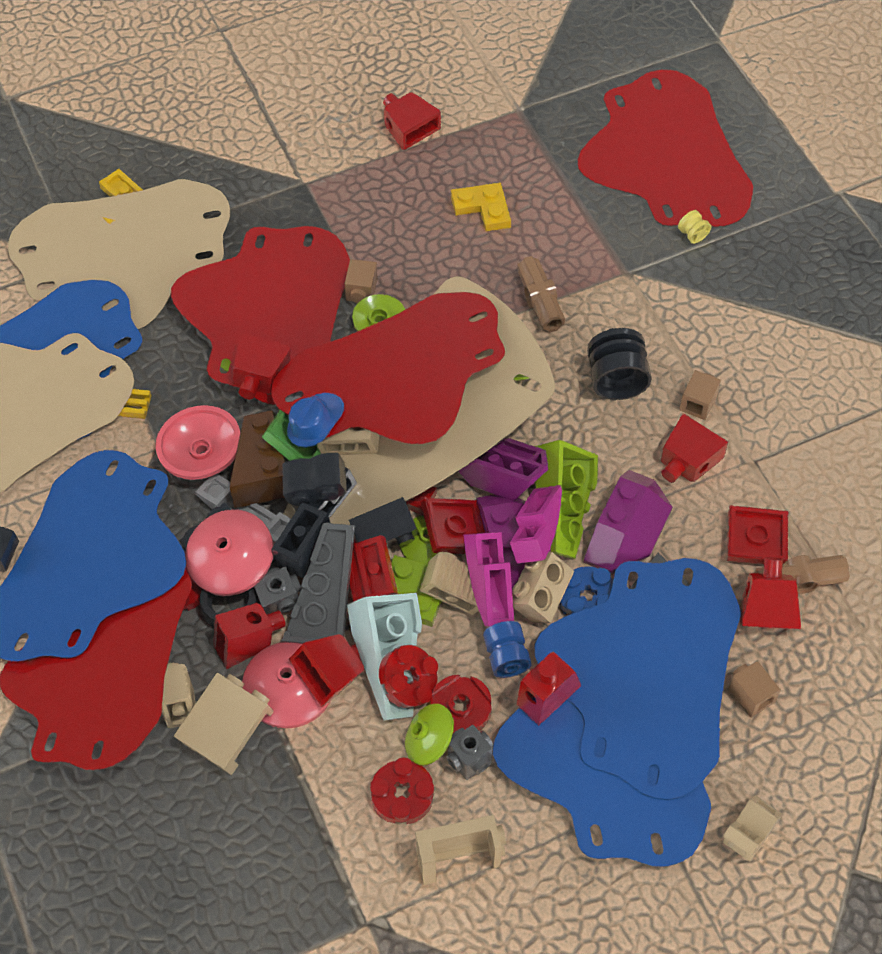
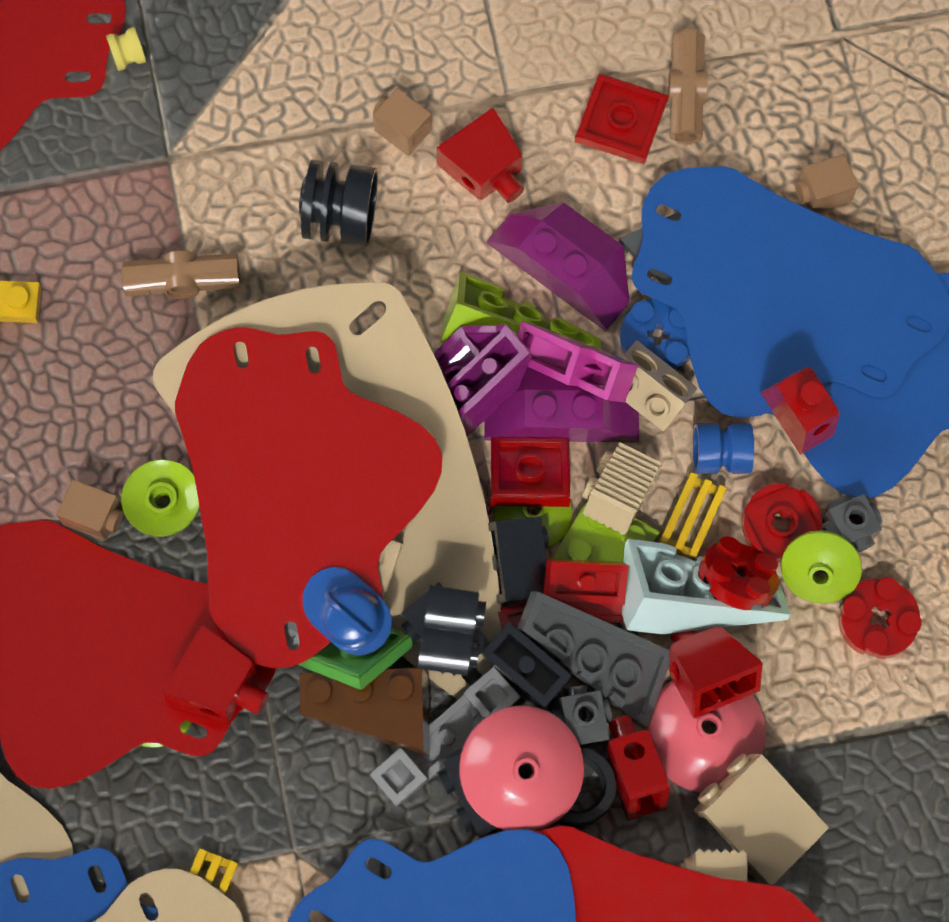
camera: 80 degrees left, 15 degrees up
(198, 431) = (291, 781): coral dish -> none
(455, 634) = (705, 487): none -> yellow tile
(489, 577) = (632, 440): dark pink slope -> none
(771, 598) = (723, 128): red torso -> none

